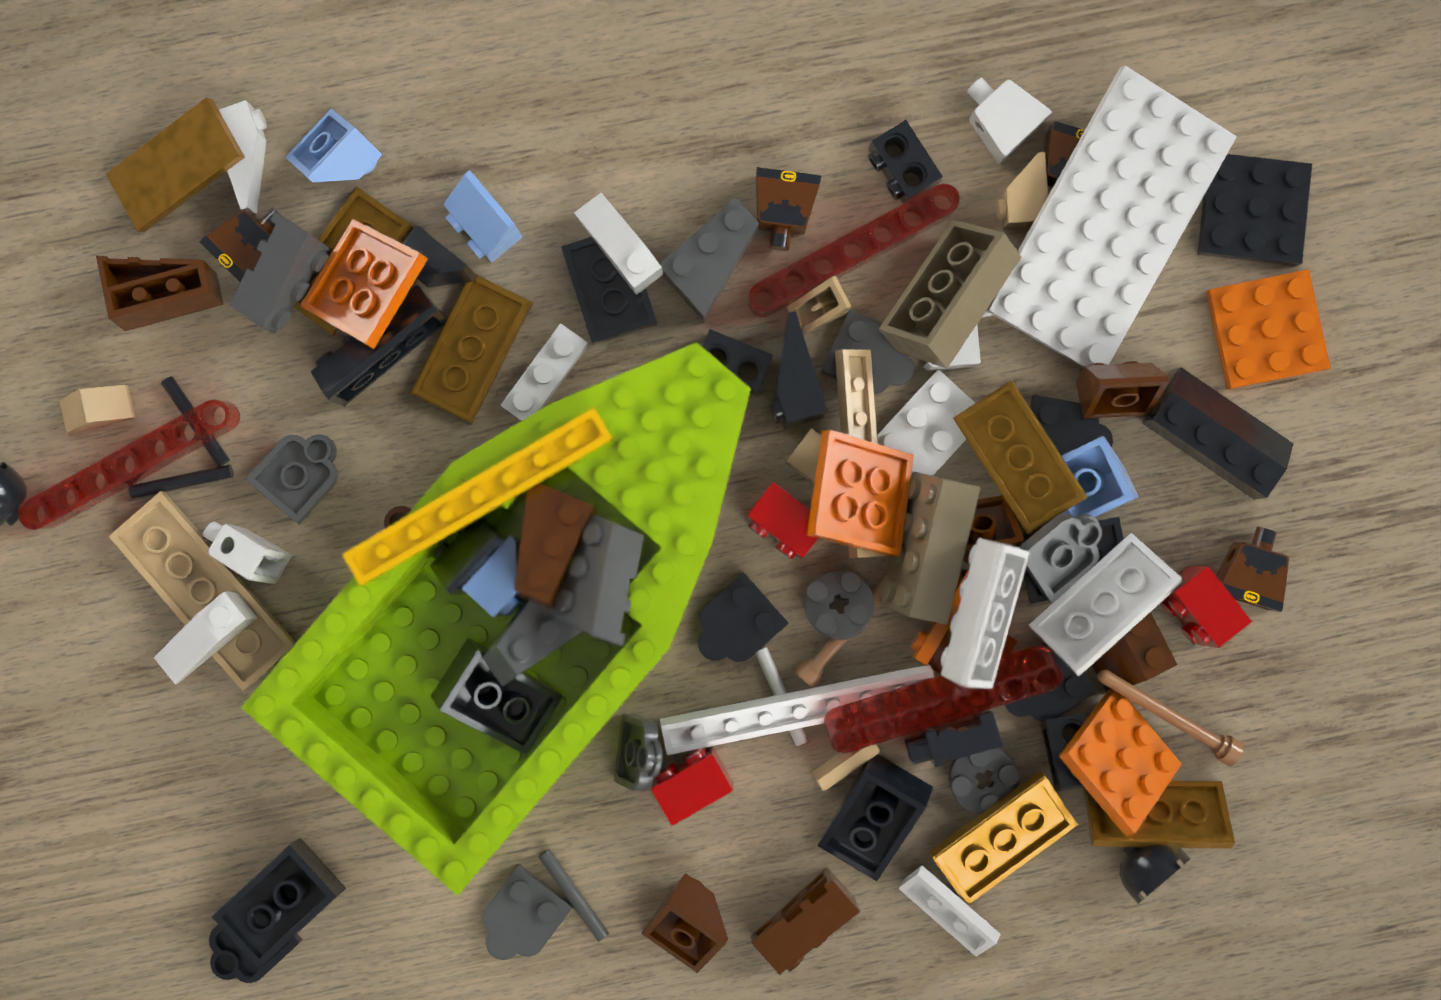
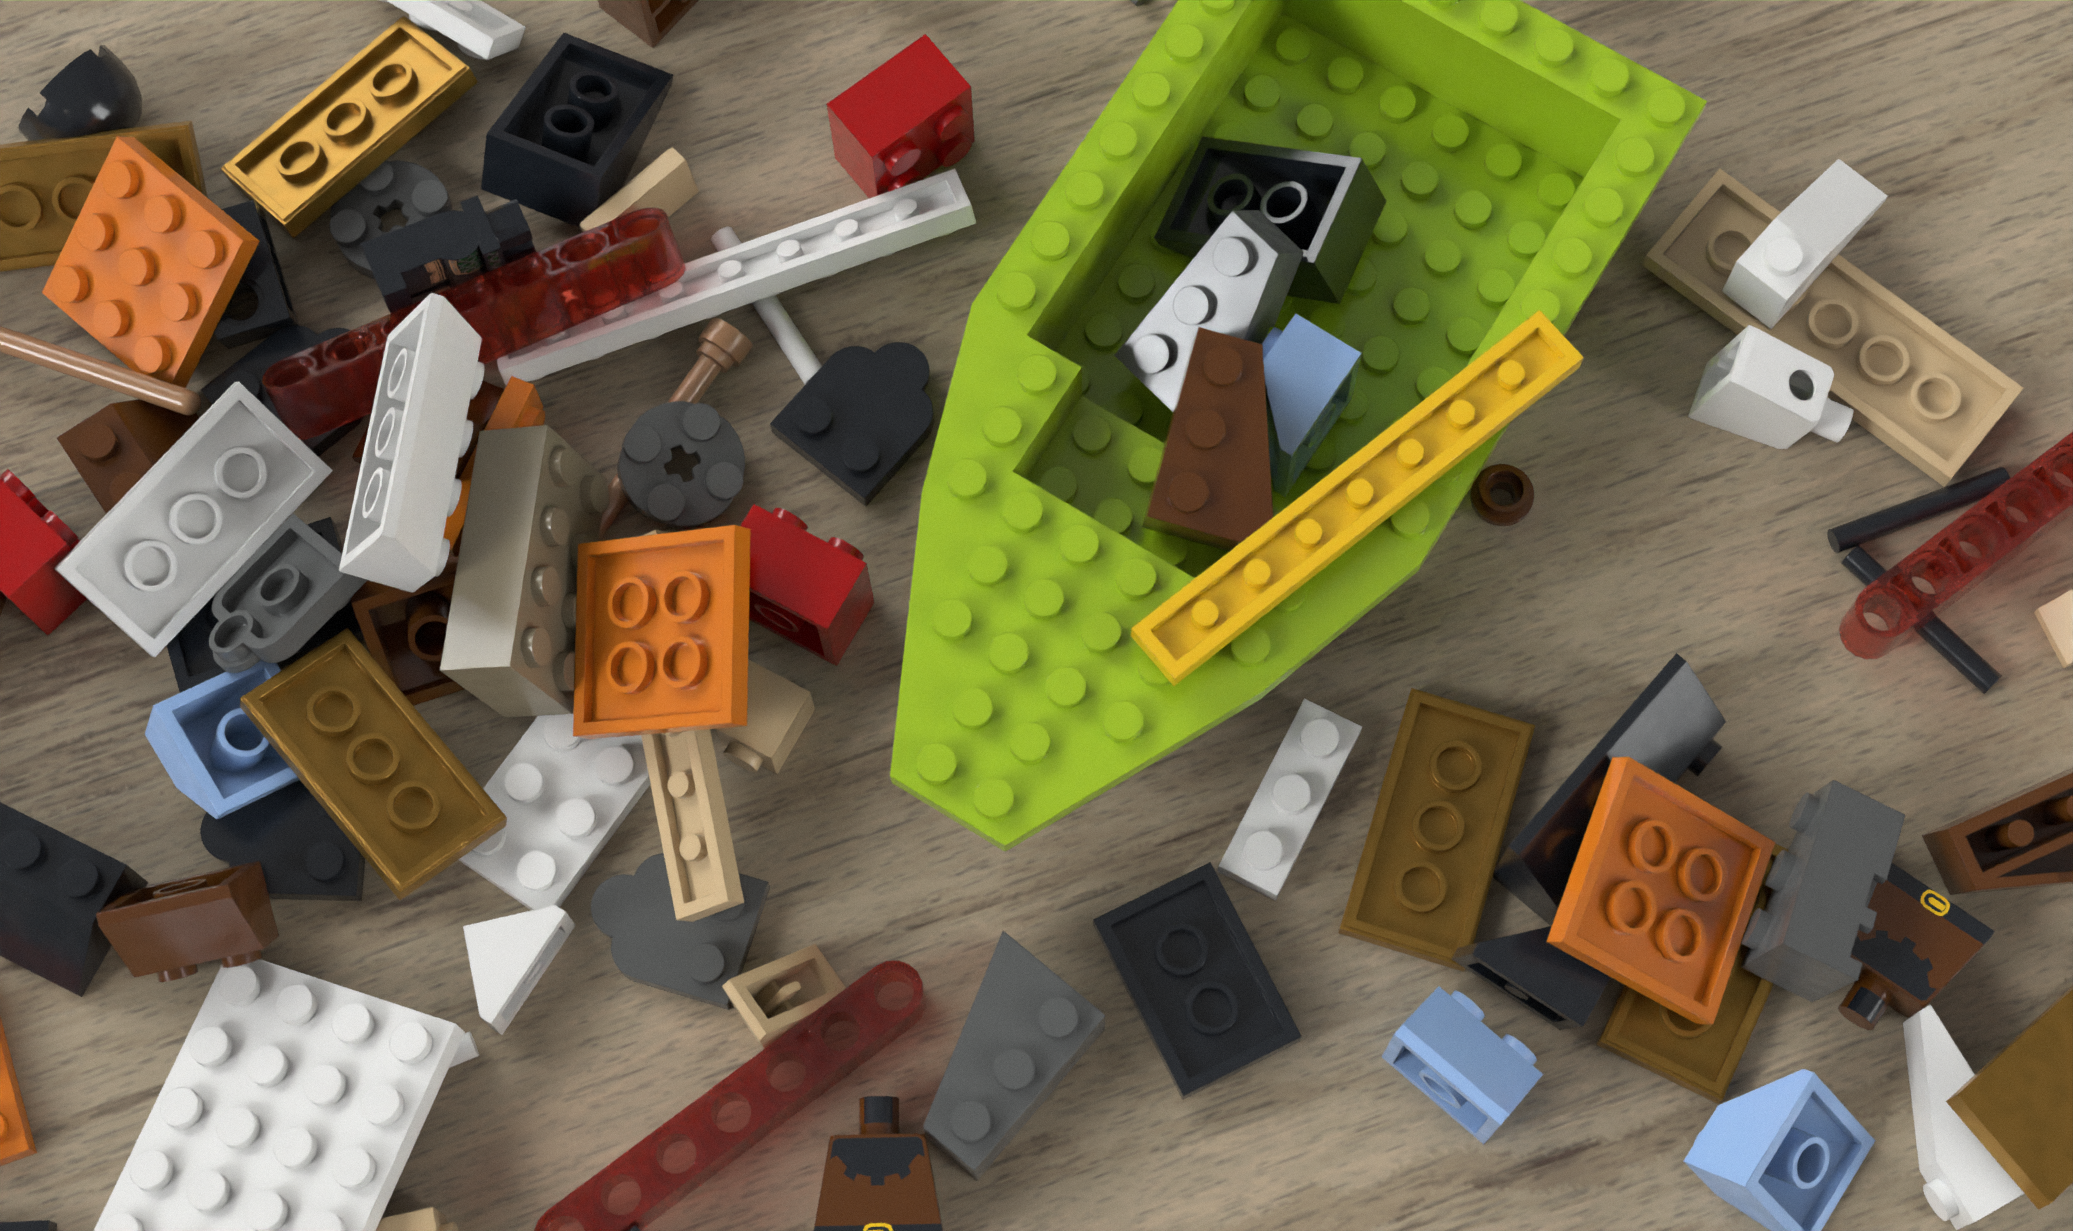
camera: 175 degrees right, 15 degrees down
(297, 474) = (1710, 550): dark grey plate -> none
(465, 555) = (1358, 405): slope -> none
(599, 579) = (1116, 393): dark grey wedge -> none
(619, 243) = (1189, 1049): white slope -> none
(637, 753) = (1005, 155): dark grey plate -> none
(739, 354) = (930, 882): black brick -> none
(797, 388) = (806, 815): black slope -> none
(950, 293) = (532, 1044): dark tan brick -> none

